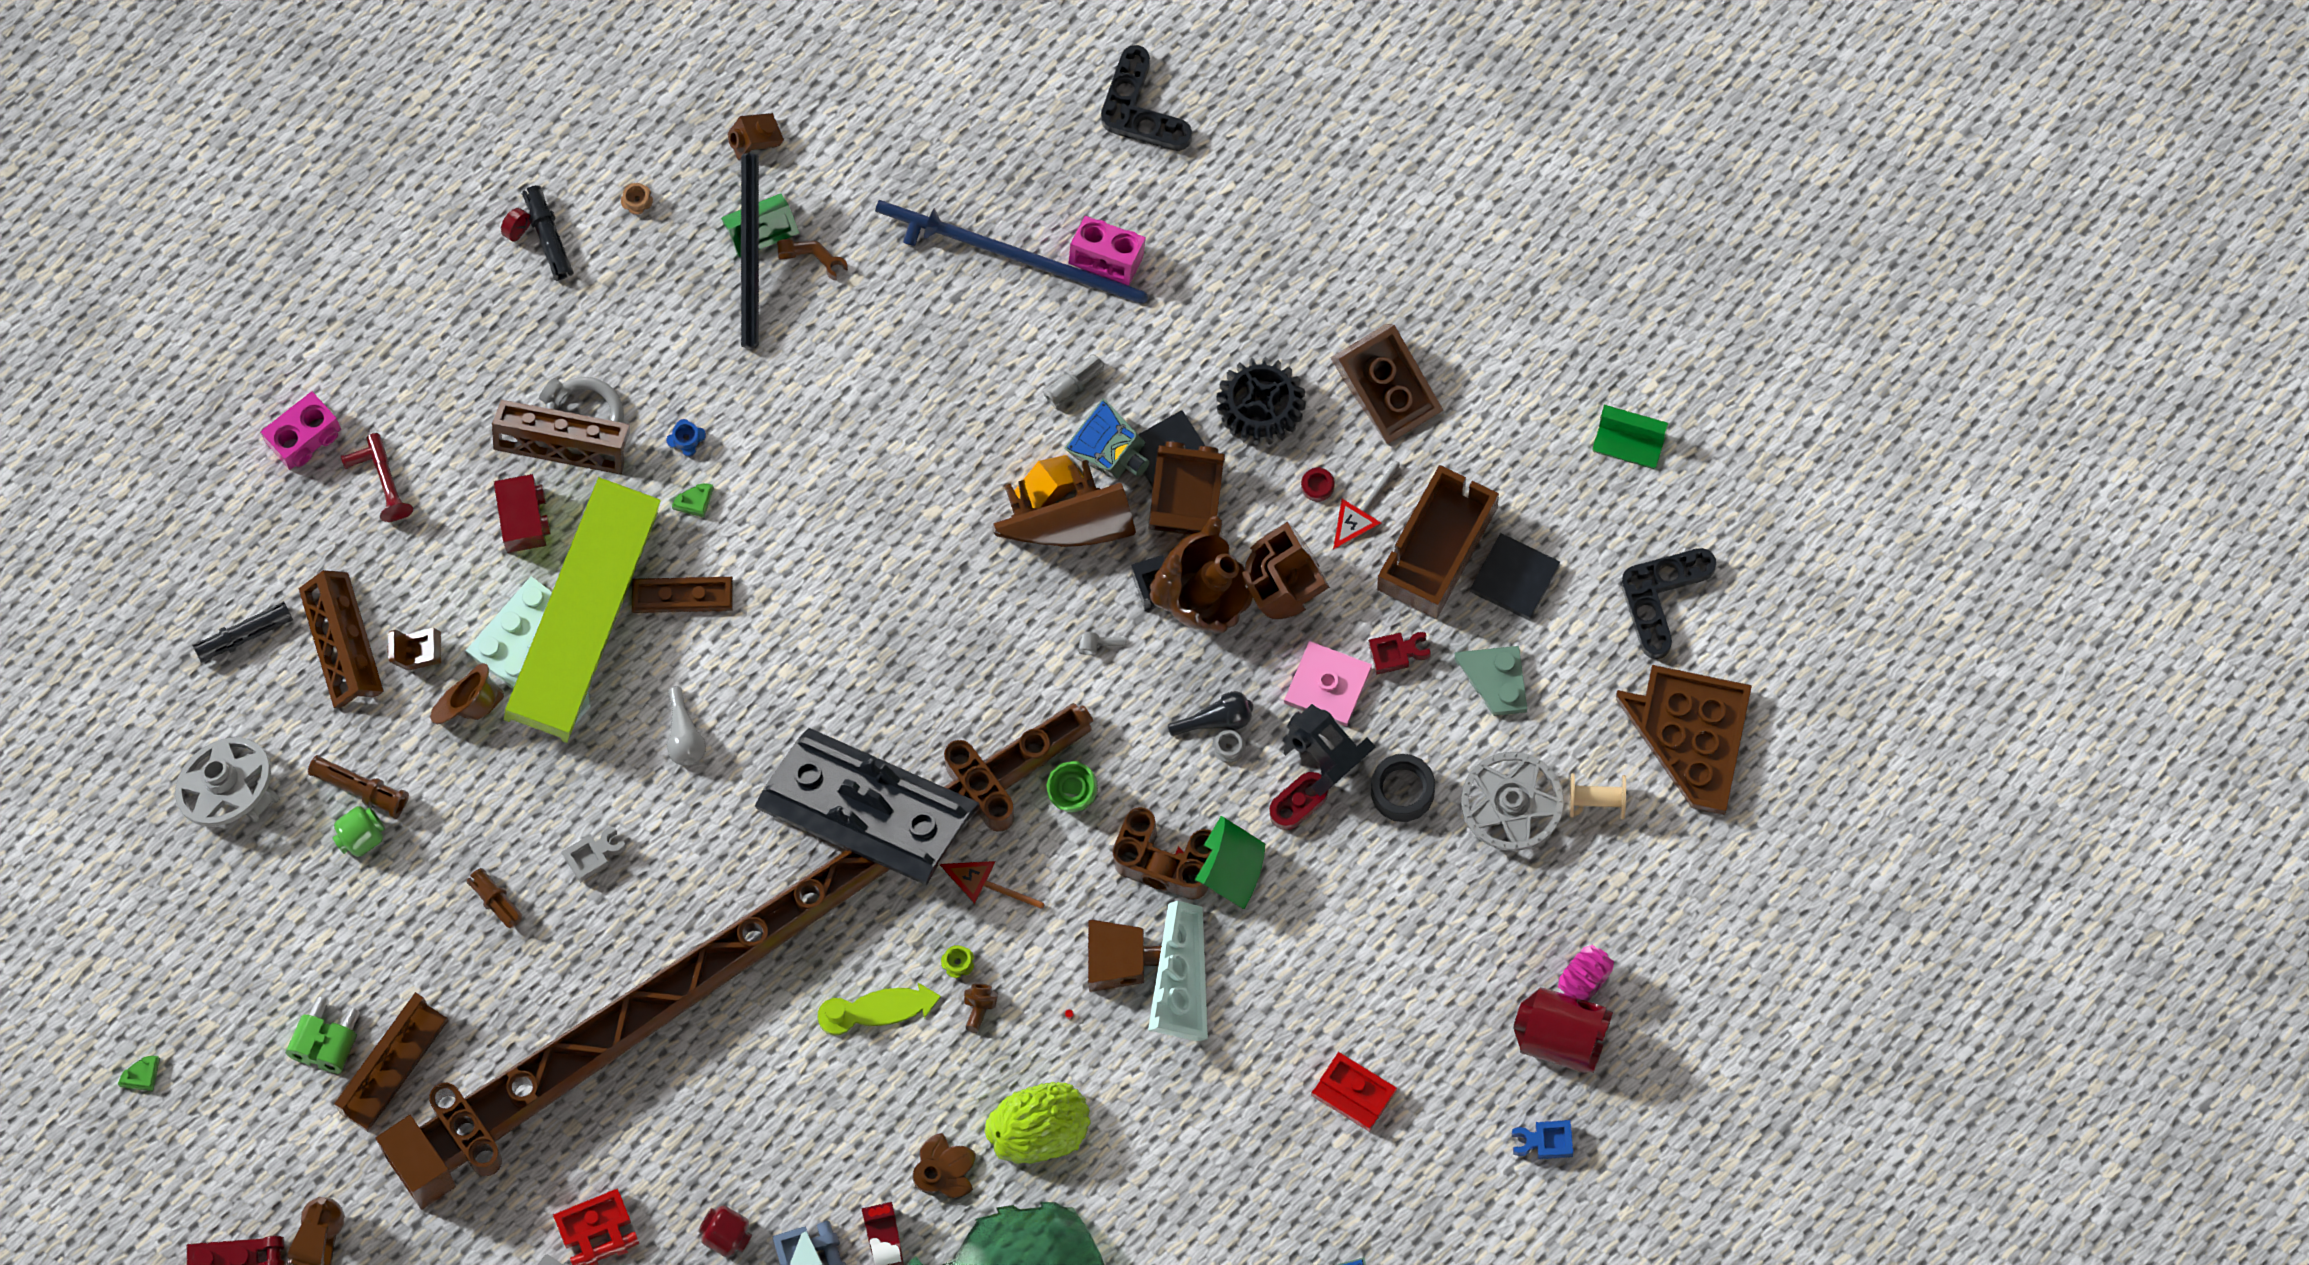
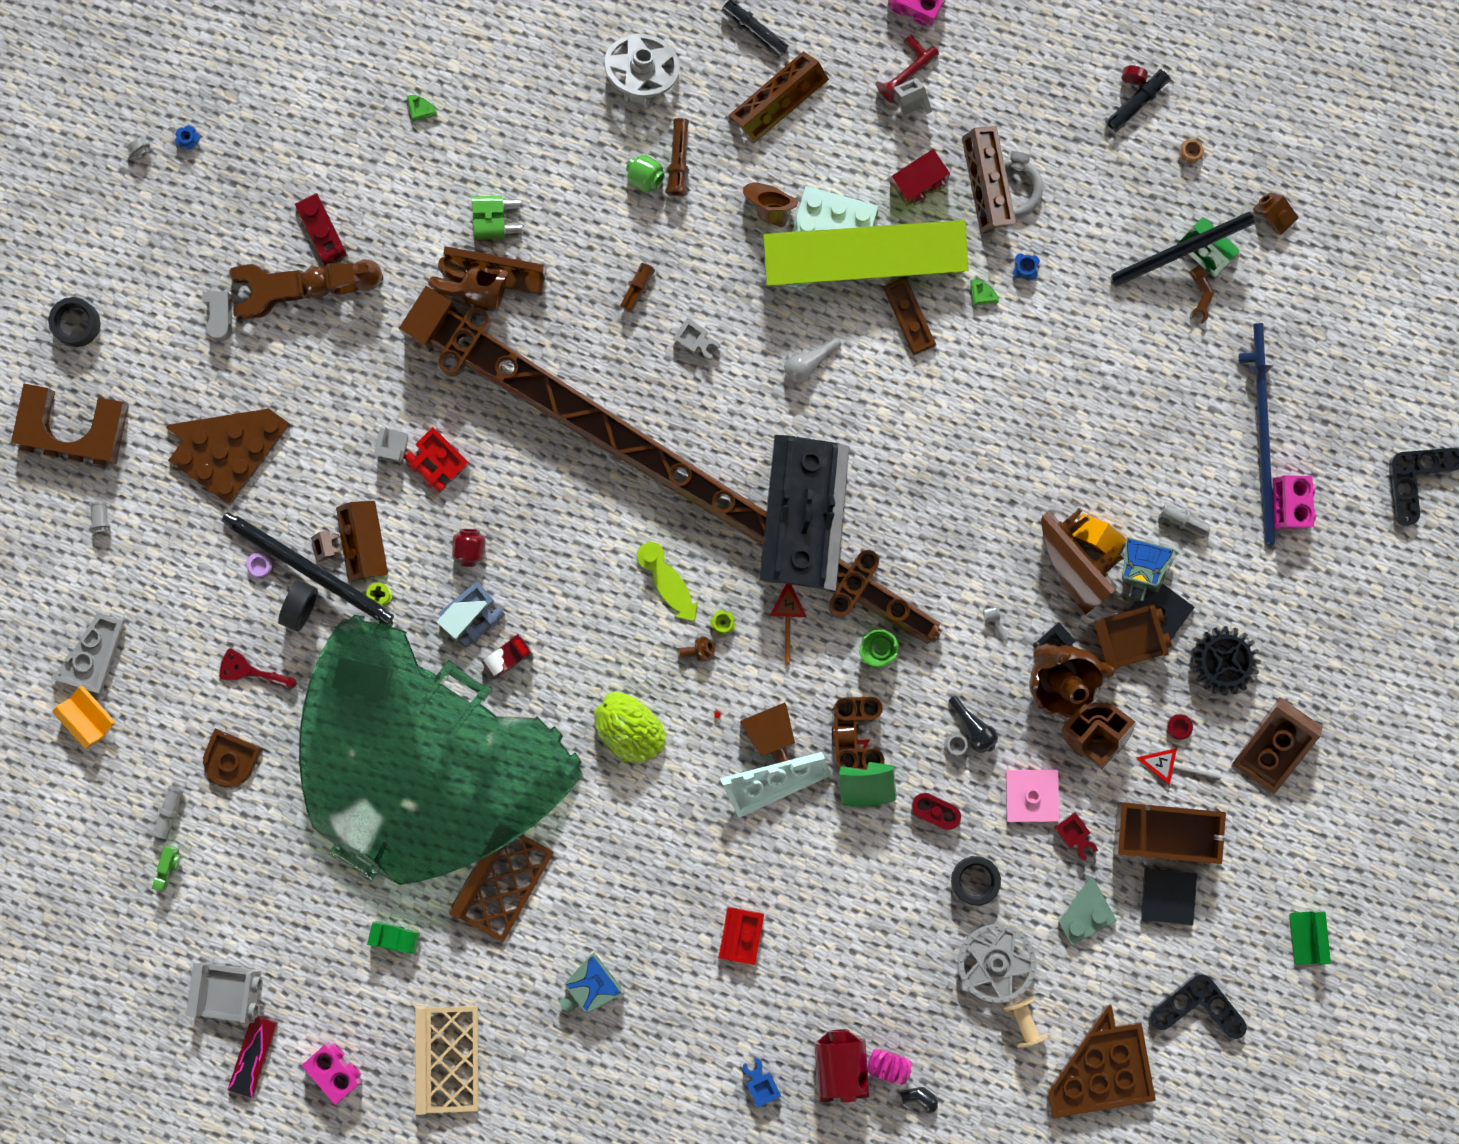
camera: 70 degrees right, 15 degrees up
(401, 1084) = (477, 286): none -> reddish brown piece
(414, 649) = (791, 150): reddish brown bracket -> none
(417, 481) = (912, 96): none -> light grey panel
(948, 1165) = (577, 677): reddish brown plate -> none
(1334, 763) = (968, 829): black tile -> none
(1637, 955) = (922, 1096): none -> black arm

